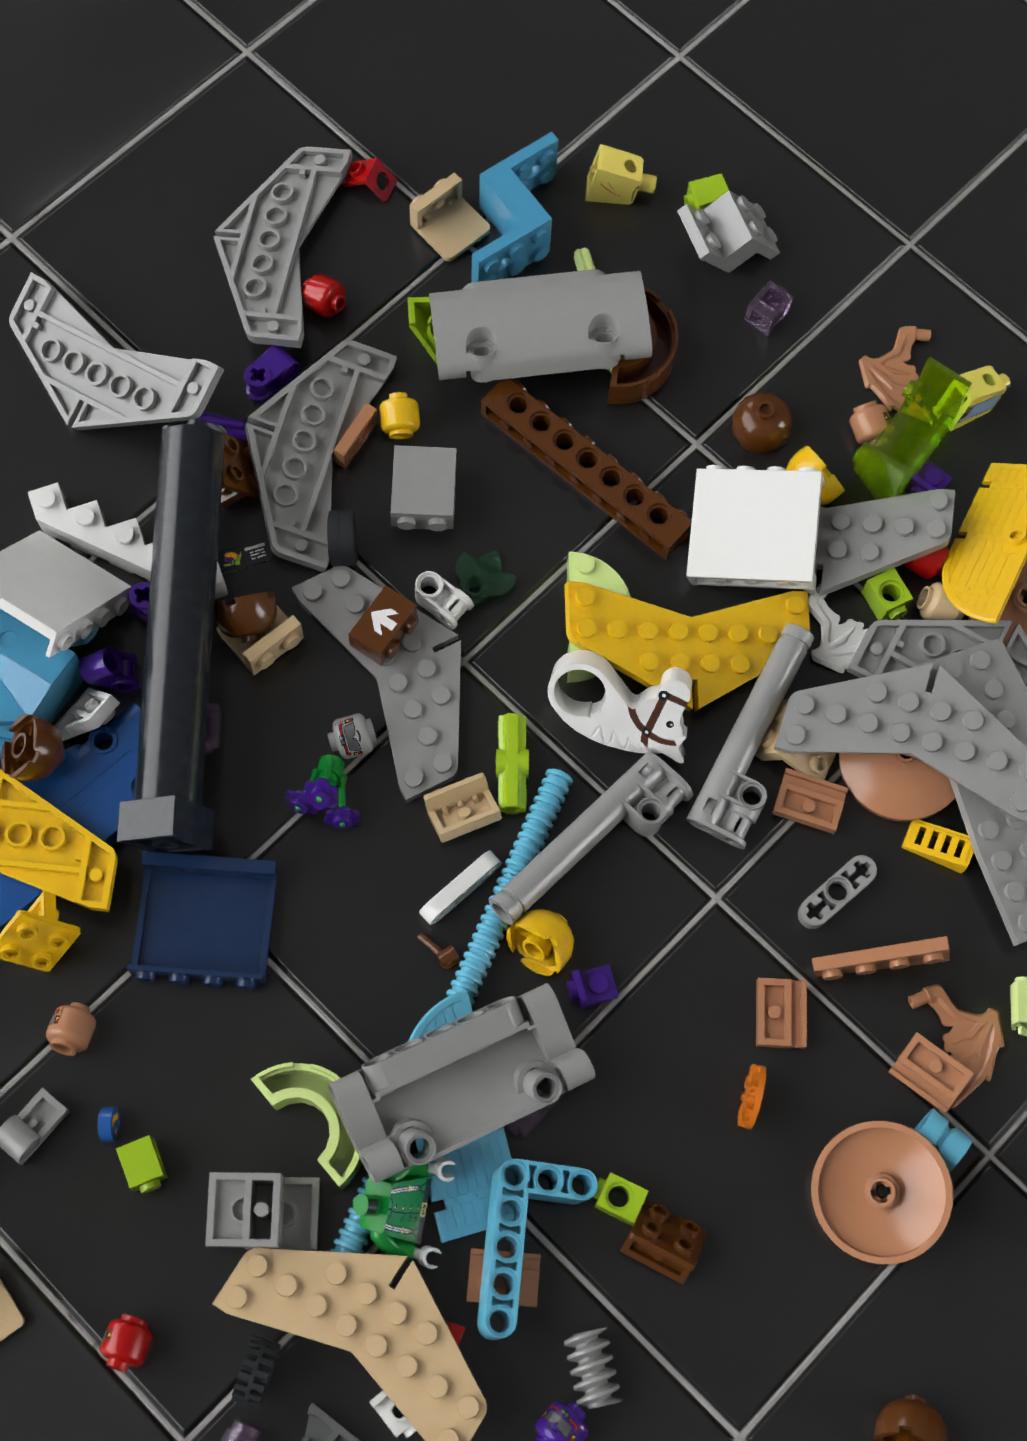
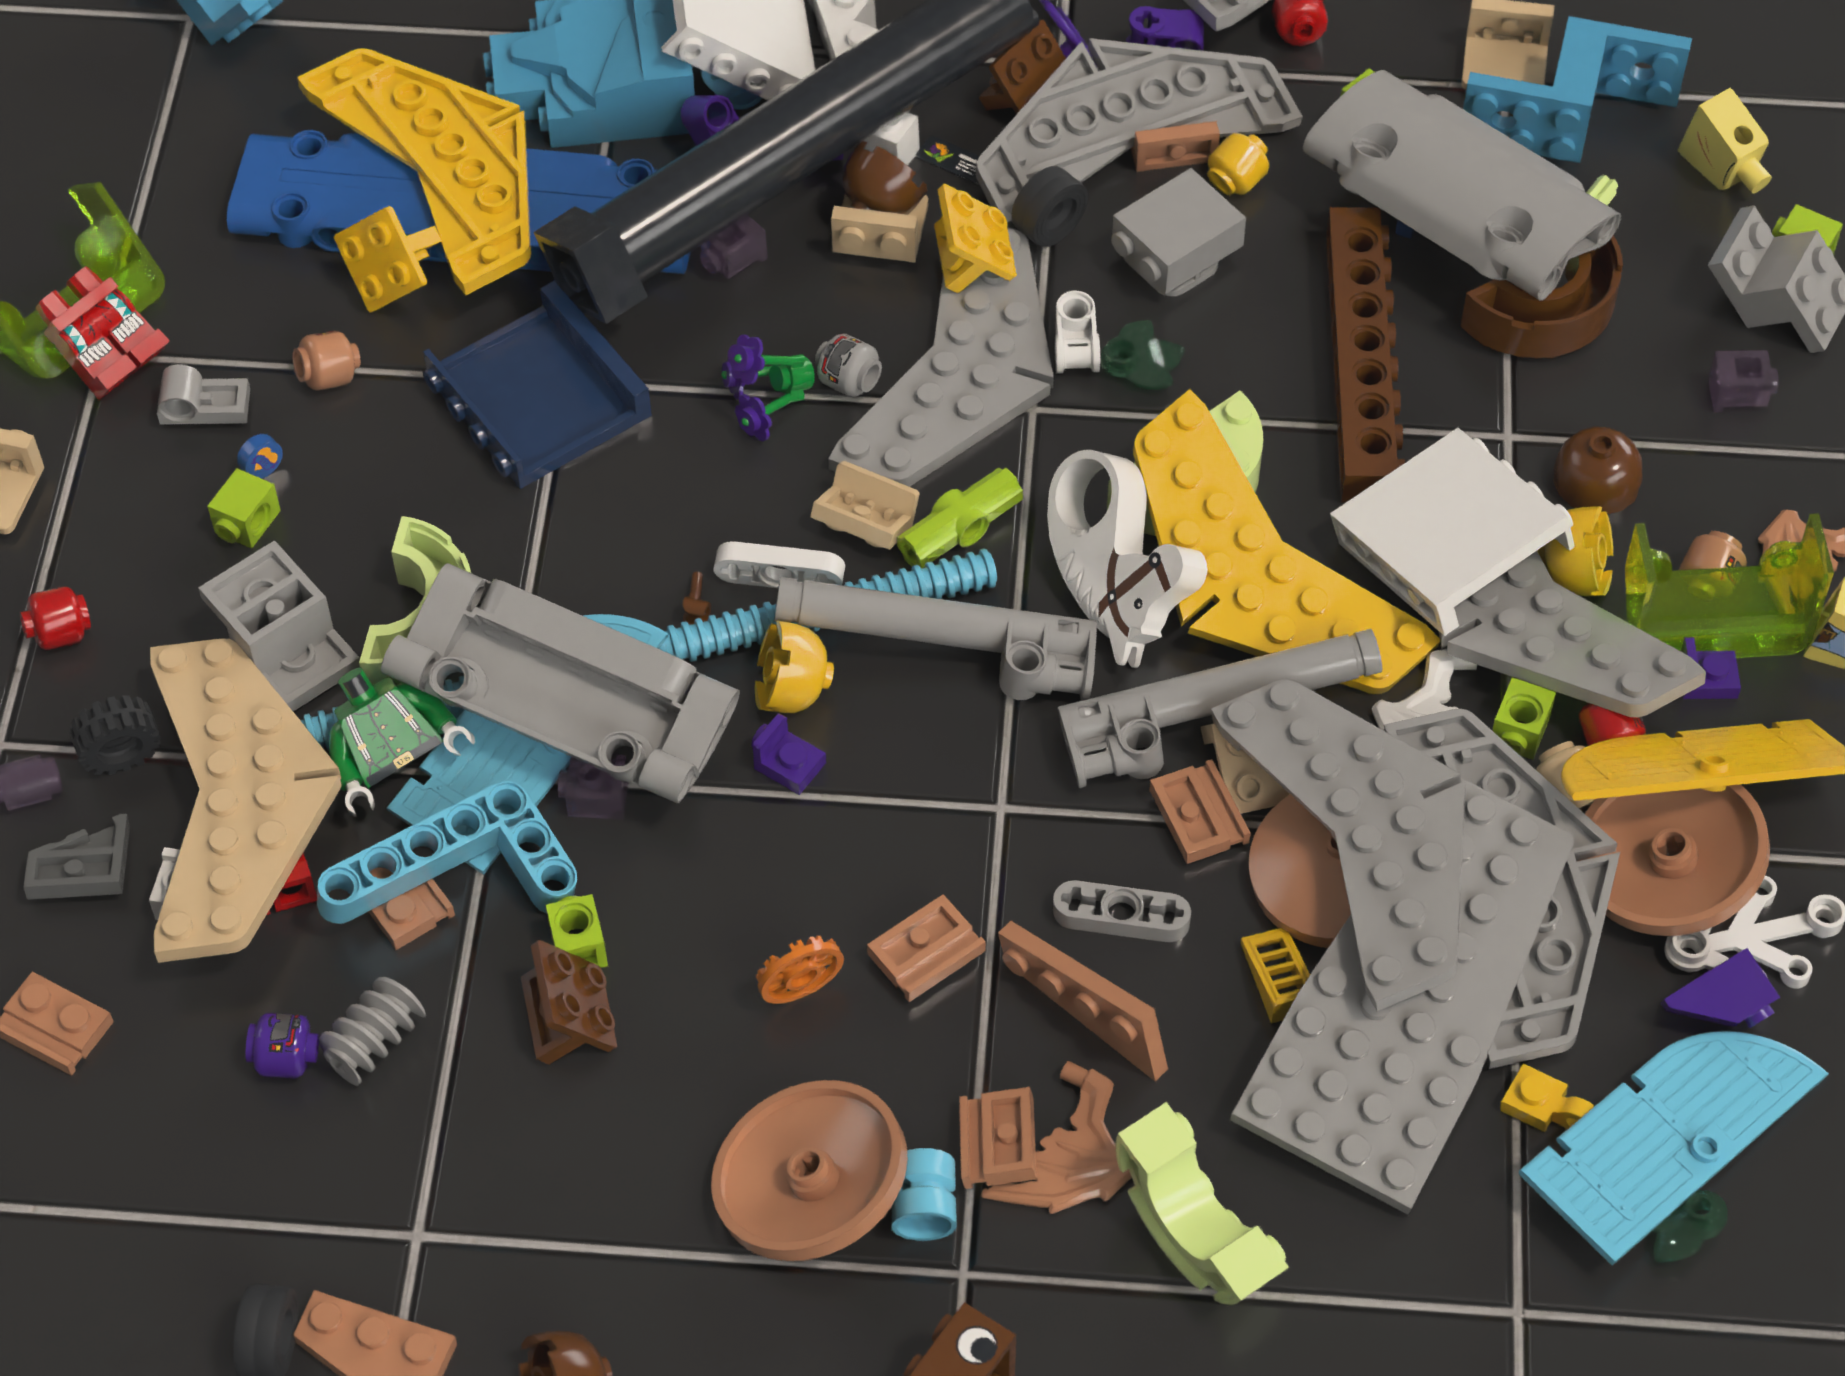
camera: 55 degrees right, 15 degrees down
(33, 750) = (566, 119): reddish brown cylinder -> none
(87, 713) = (660, 147): white wing -> none
(332, 599) = (971, 240): none -> yellow bracket
(384, 625) = (988, 298): reddish brown brick -> none

